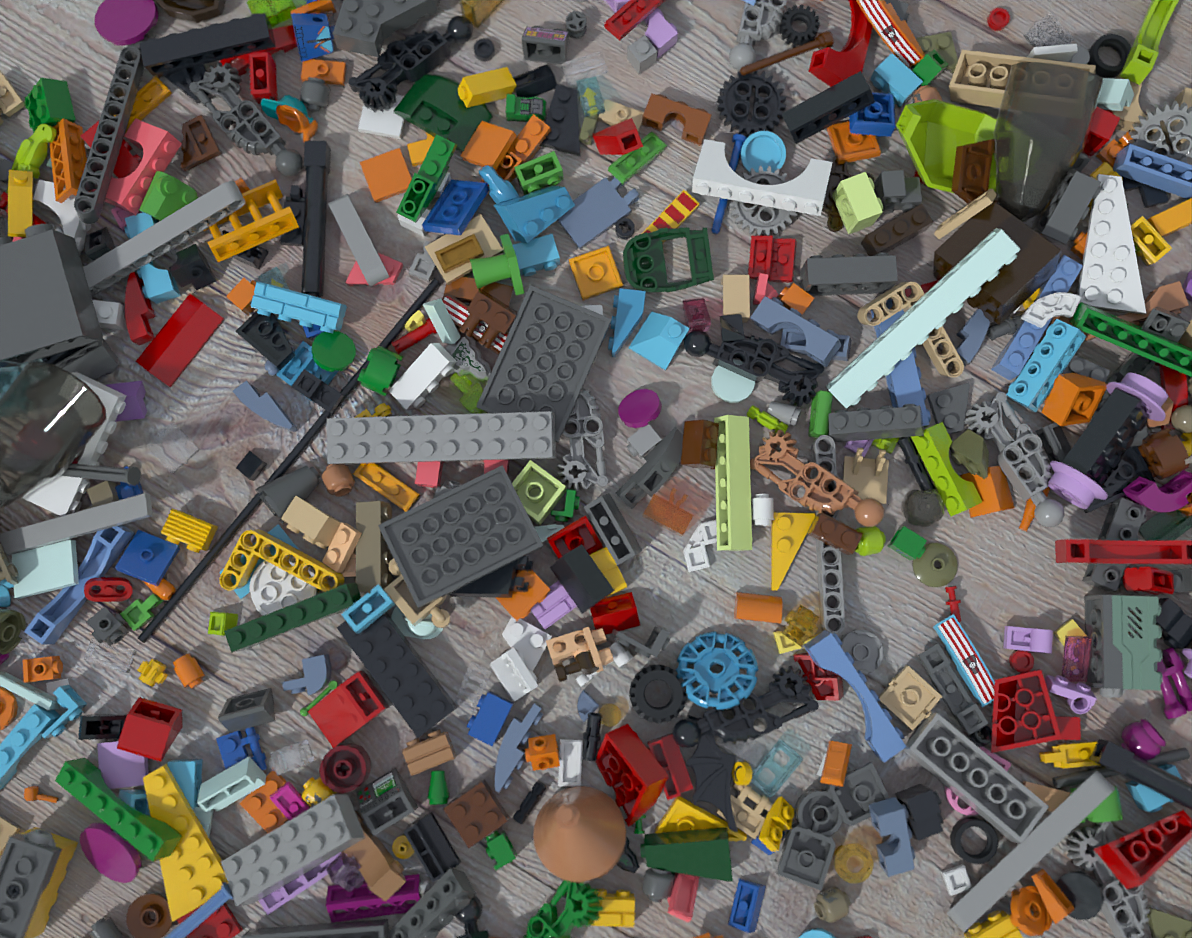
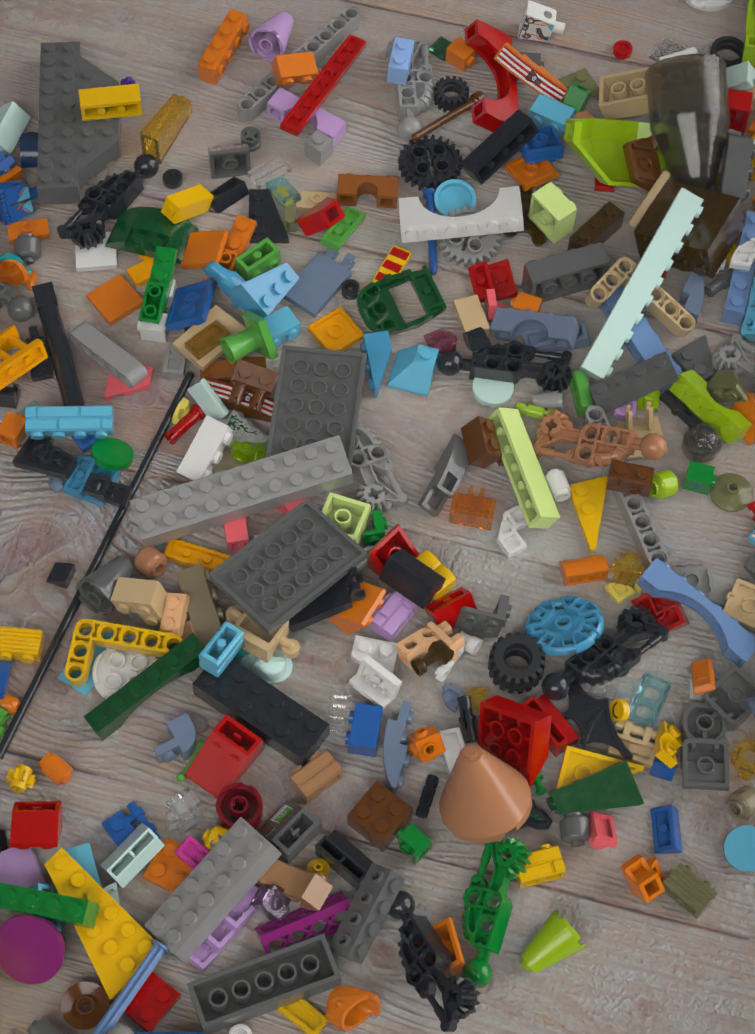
camera: 20 degrees left, 20 degrees down
(221, 622) = (73, 721): lime slope -> none
(248, 710) = (129, 788): dark grey slope -> none
(264, 406) = (60, 519): sand blue slope -> none
(380, 370) = (165, 455): green brick -> none
(438, 789) = (335, 808): green cone -> none
(522, 109) = (224, 216): green leg -> none
(613, 528) = (426, 533): dark grey brick -> none
(639, 408) = (415, 428): magenta tile -> none
(642, 441) = (427, 455): light grey brick -> none
(897, 191) = (586, 197): dark grey brick -> none

